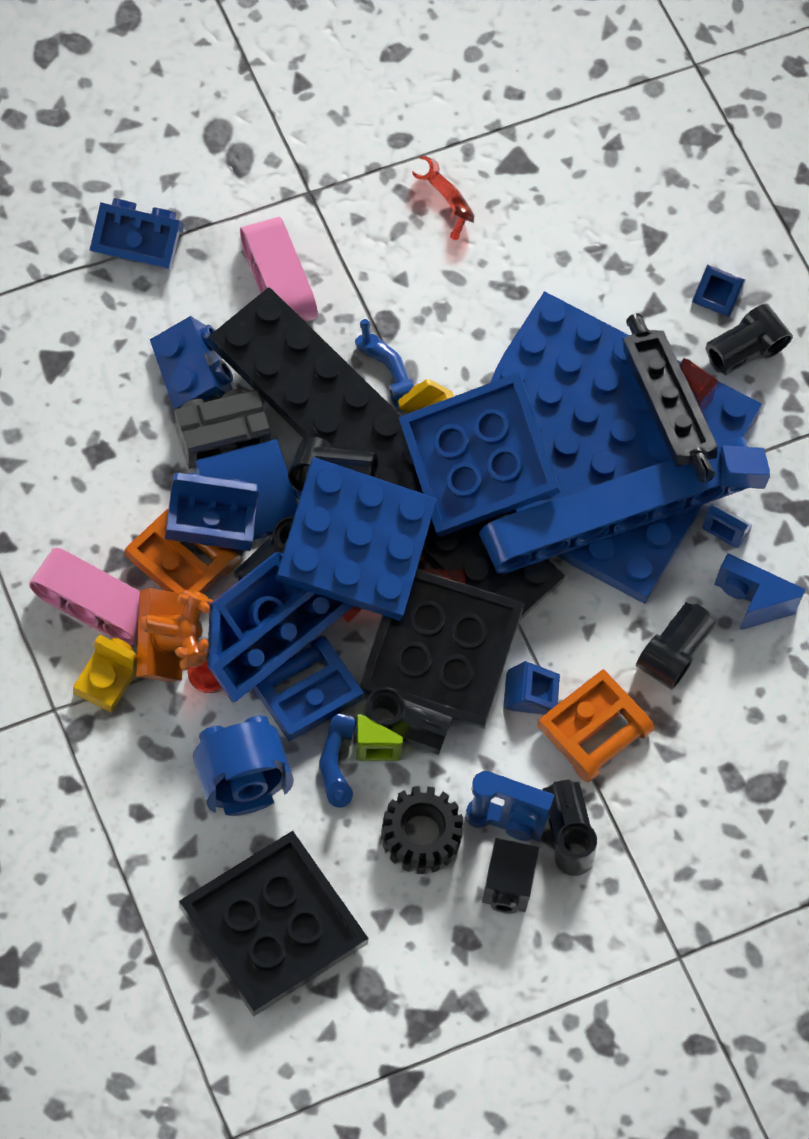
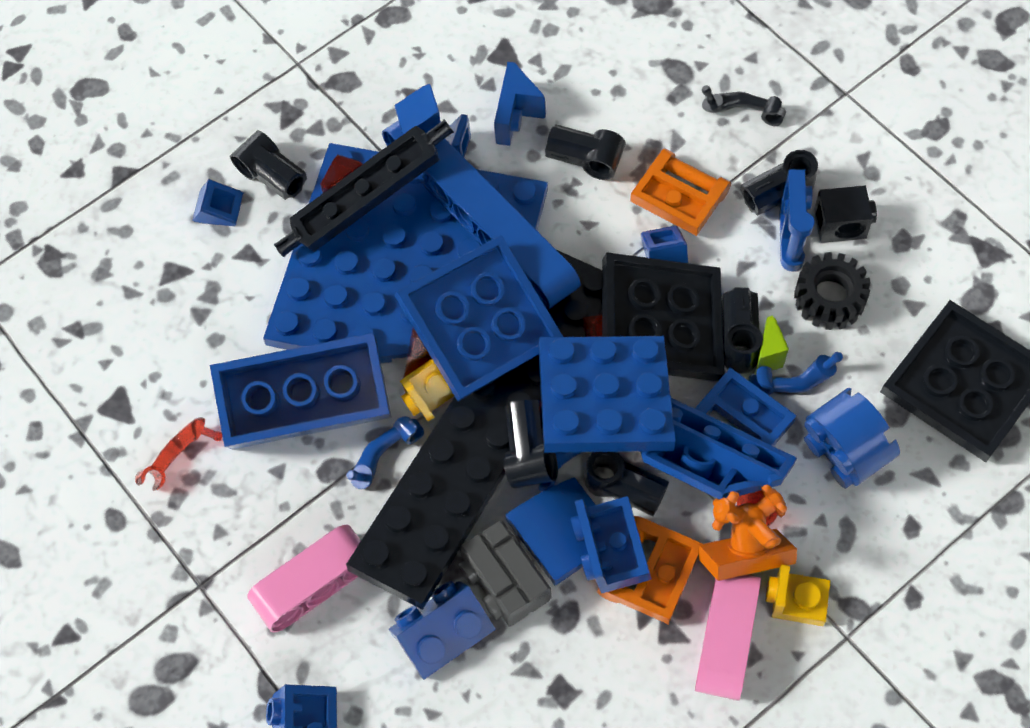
camera: 95 degrees left, 0 degrees up
(464, 300) = (300, 391): none -> blue brick
(703, 814) = (772, 111): none -> black piece

